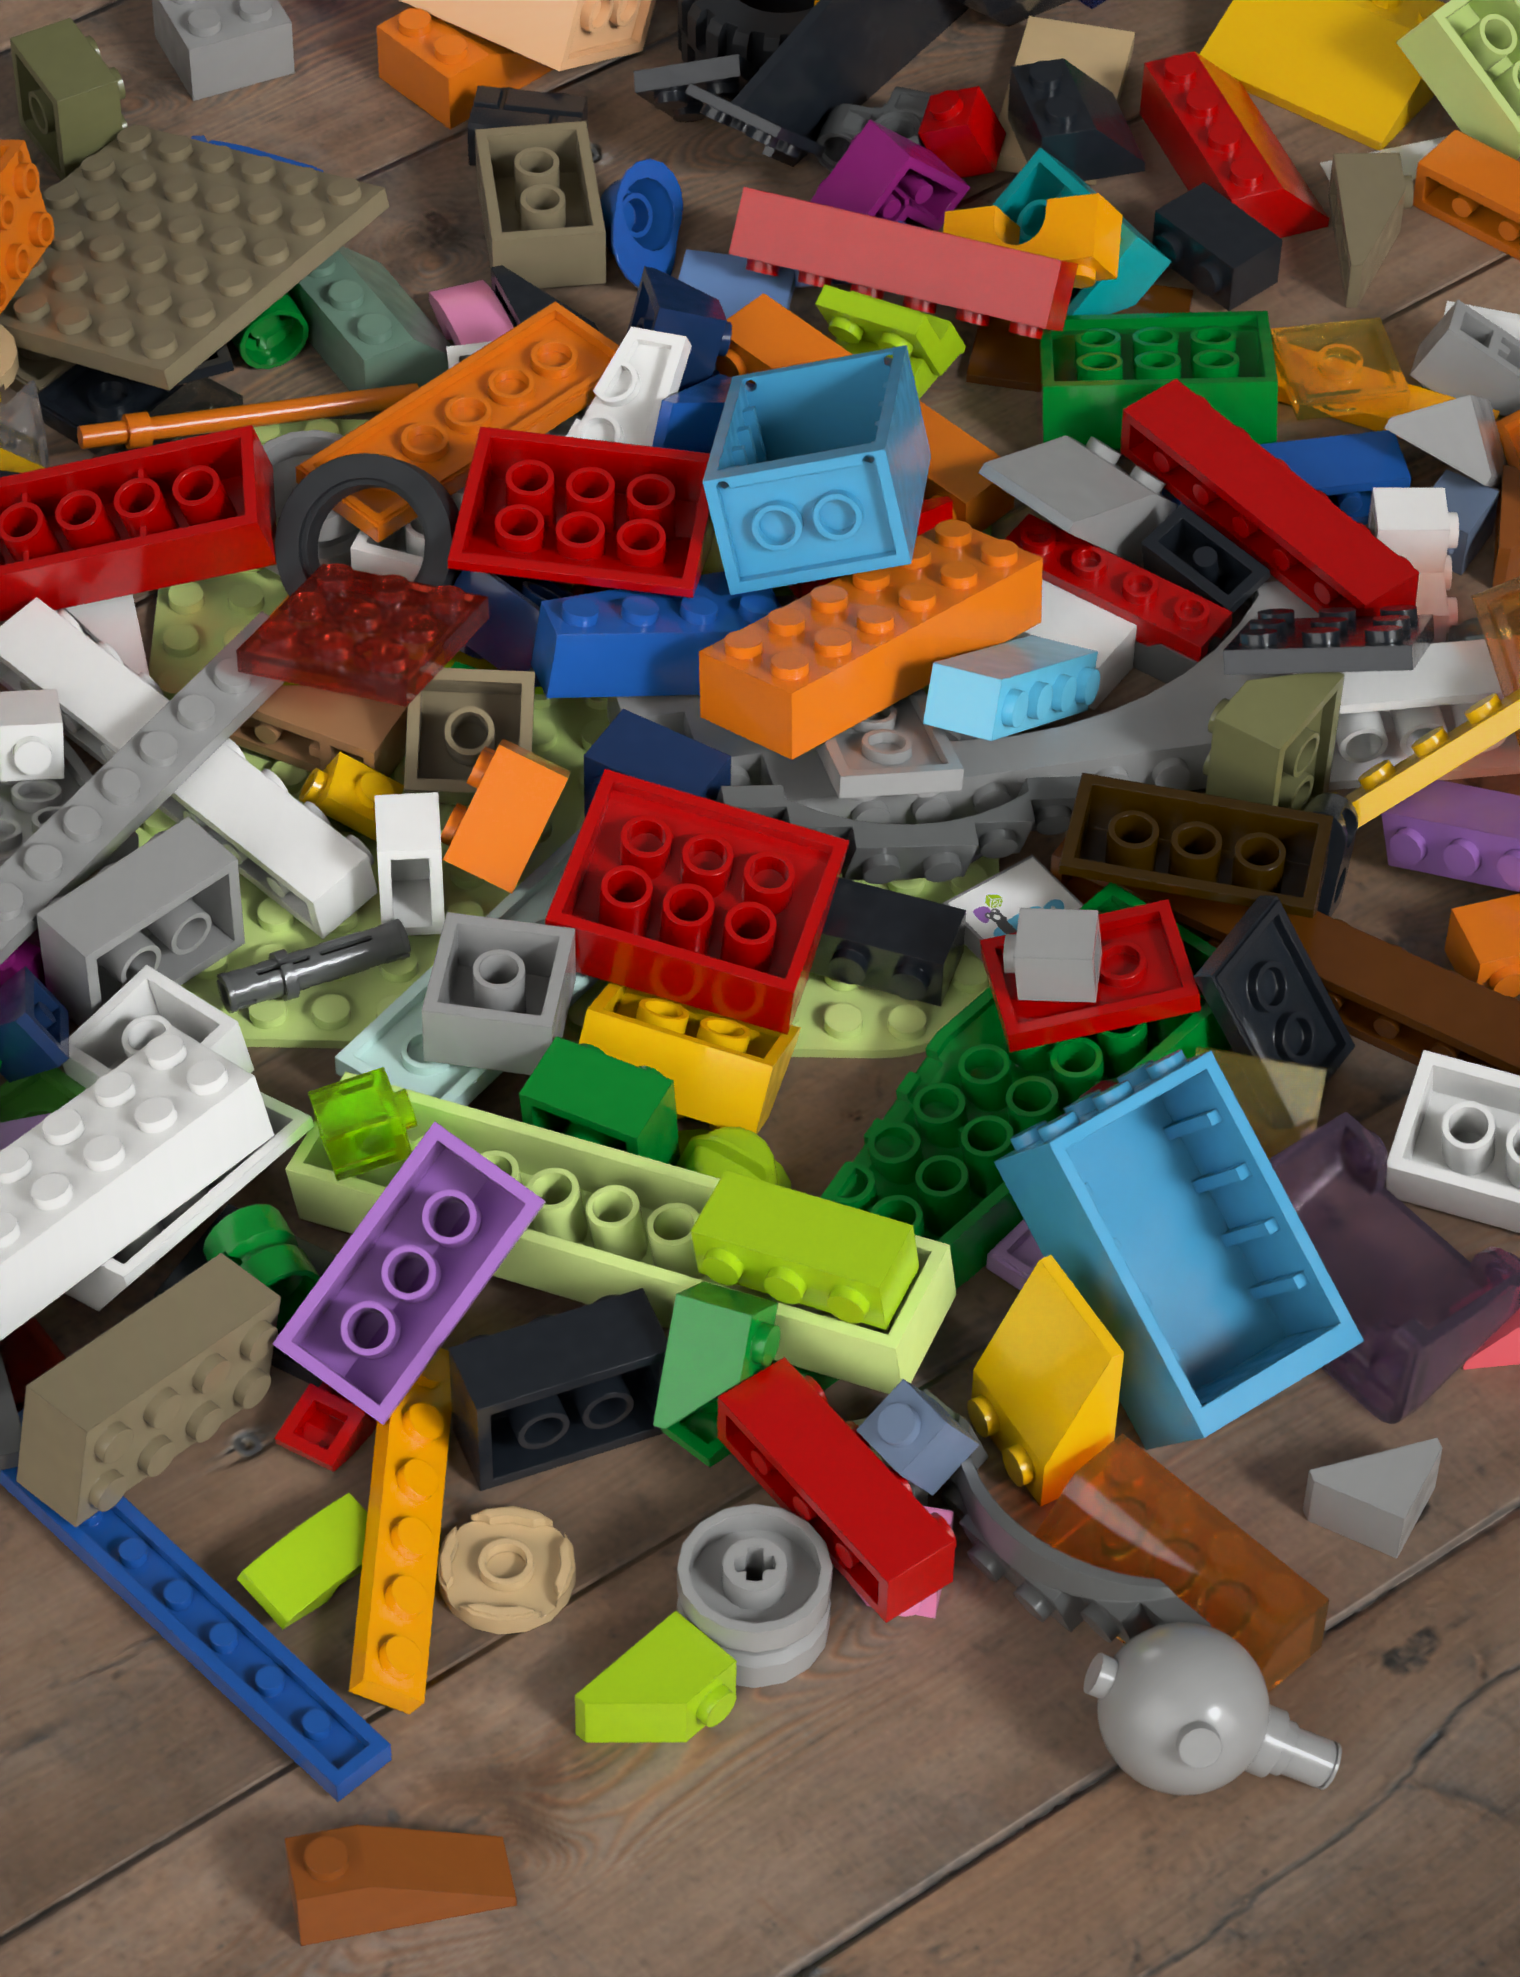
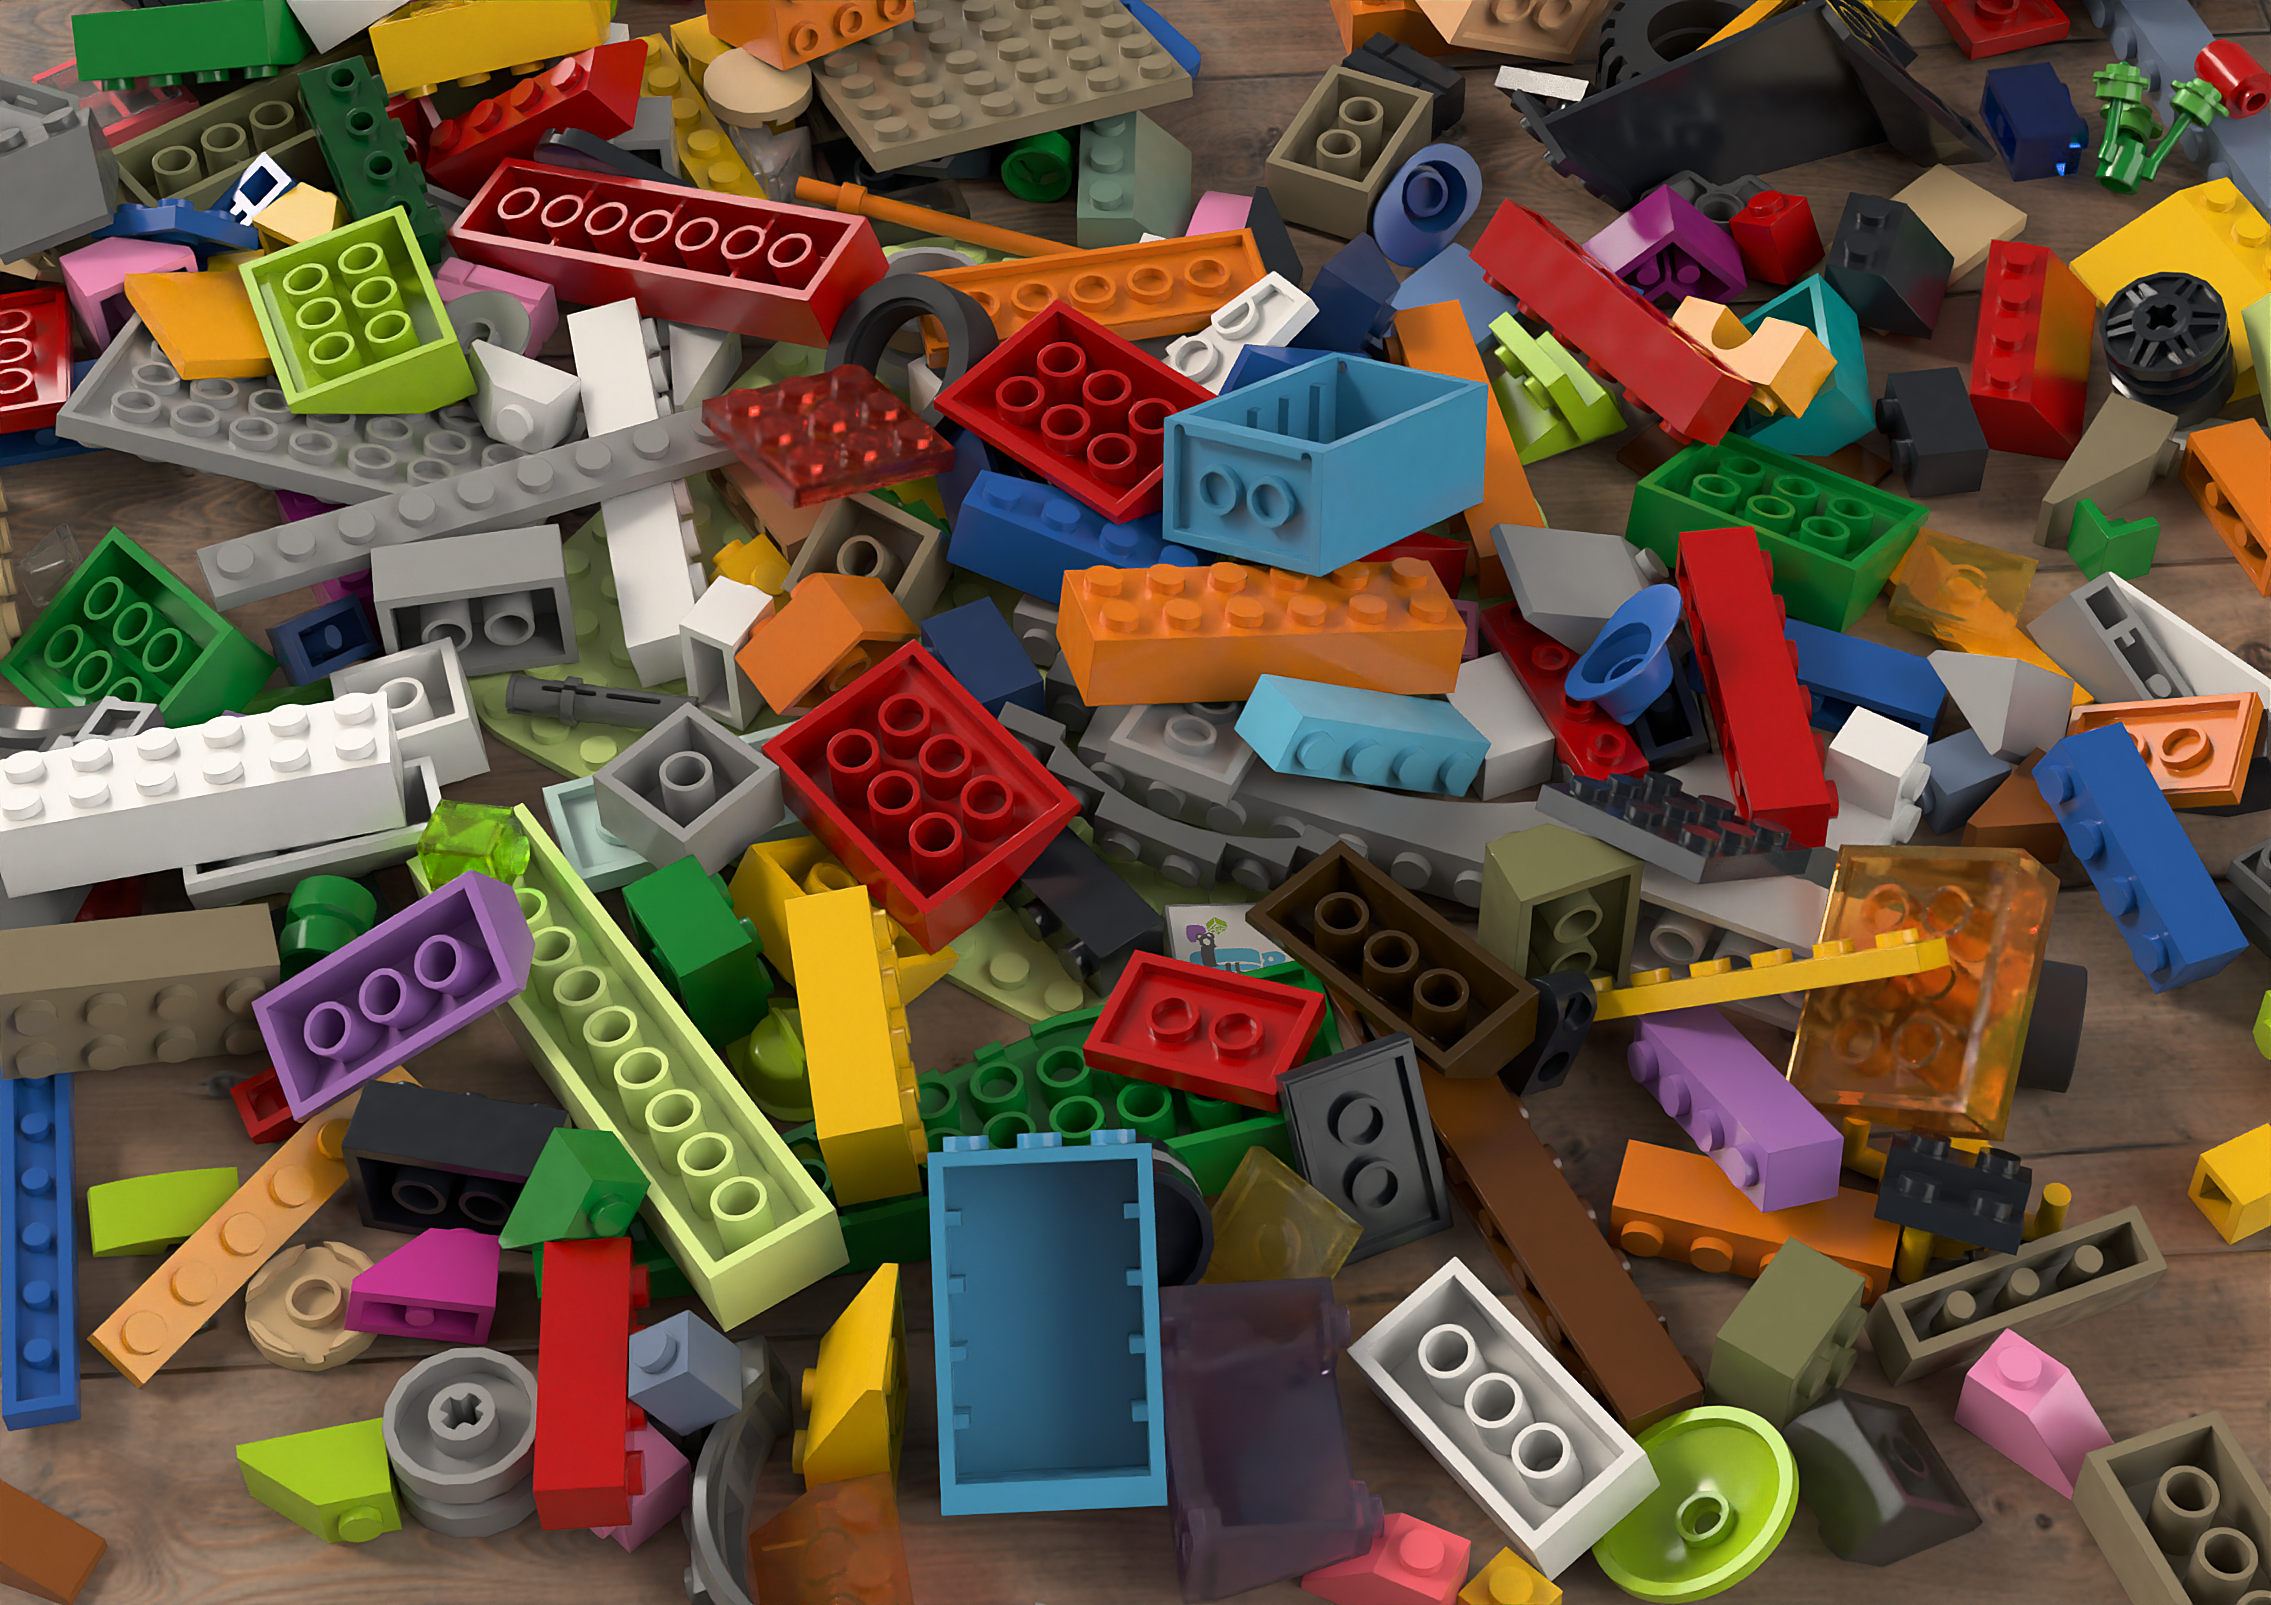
camera: 35 degrees right, 0 degrees up
(618, 1497) = (430, 1289): none -> dark pink slope
(805, 1249) = (696, 1148): lime brick -> none
(838, 1110) = (856, 1045): none -> yellow brick
(1055, 955) = (1168, 994): light grey brick -> none
(1169, 521) = (1629, 657): none -> blue piece
(1353, 94) = (2170, 346): none -> black wheel
(1416, 287) = (2111, 545): none -> green panel

